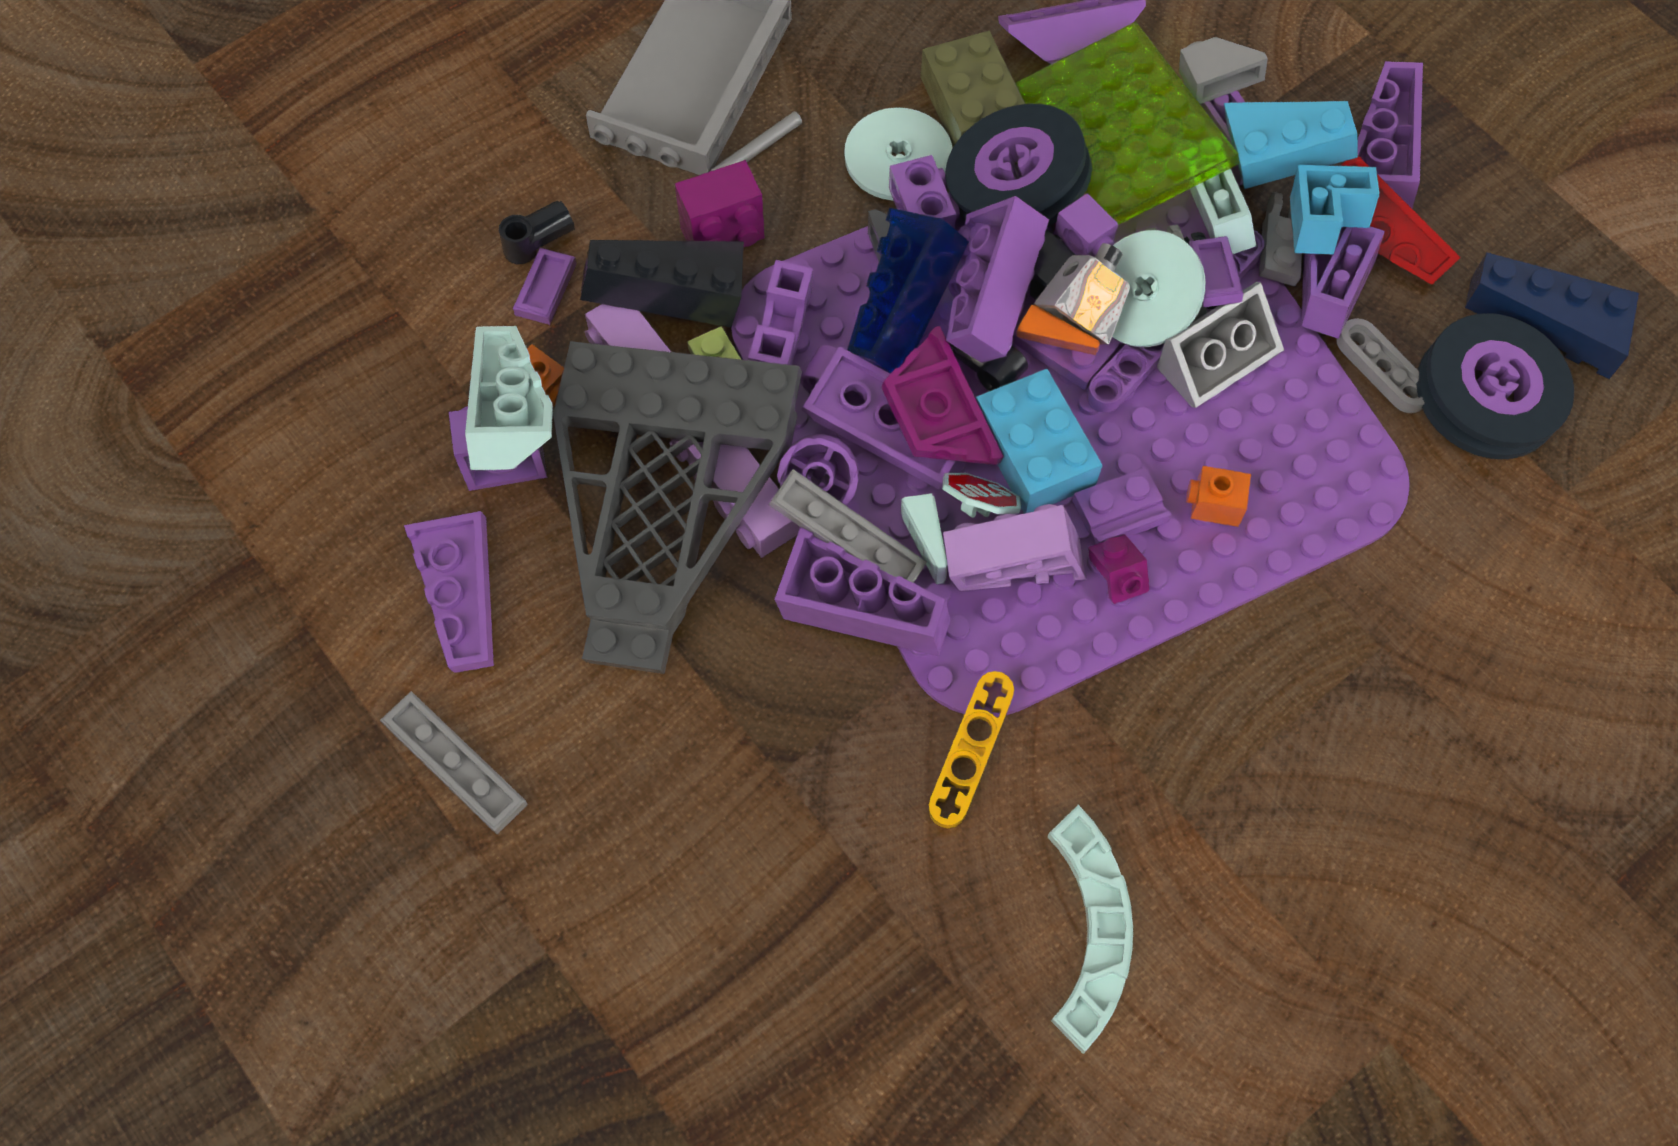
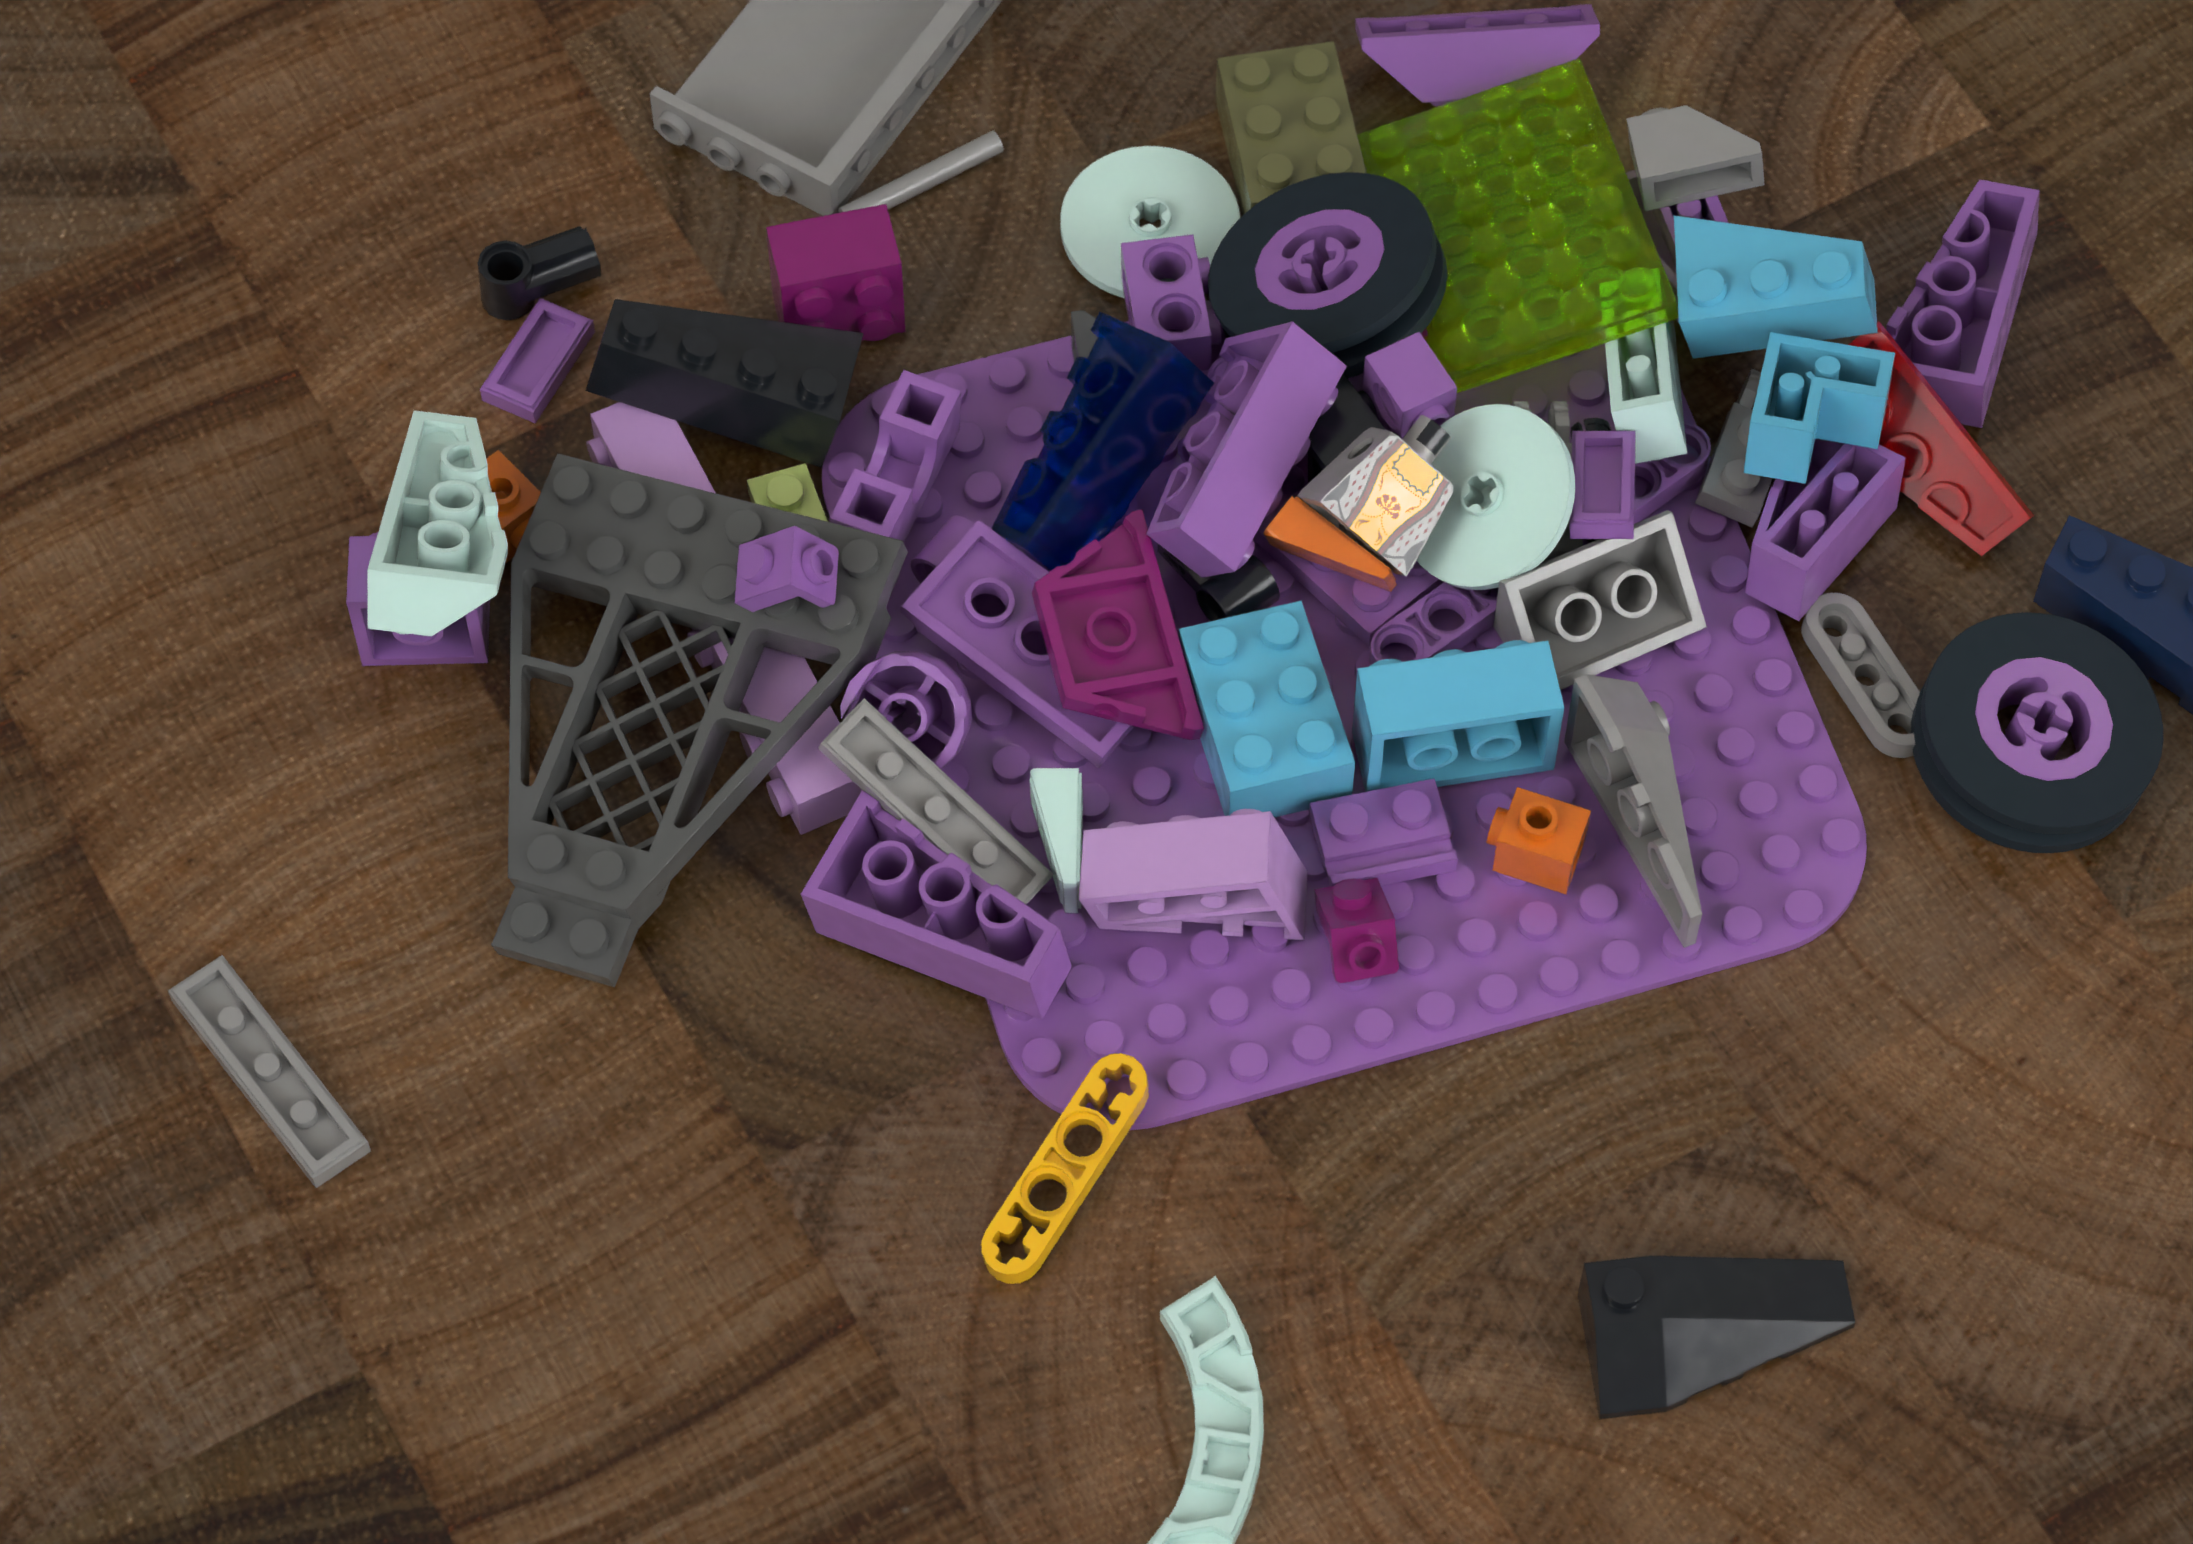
camera: 10 degrees right, 5 degrees down
(457, 586) = (319, 793): medium lavender wing -> none
(729, 394) = (786, 567): none -> medium lavender bracket
(980, 495) = (1156, 780): piece -> none
(1158, 425) = (1458, 716): none -> medium azure brick
(1266, 447) = (1630, 768): none -> light grey wedge
(1381, 788) = (1689, 1323): none -> black wedge

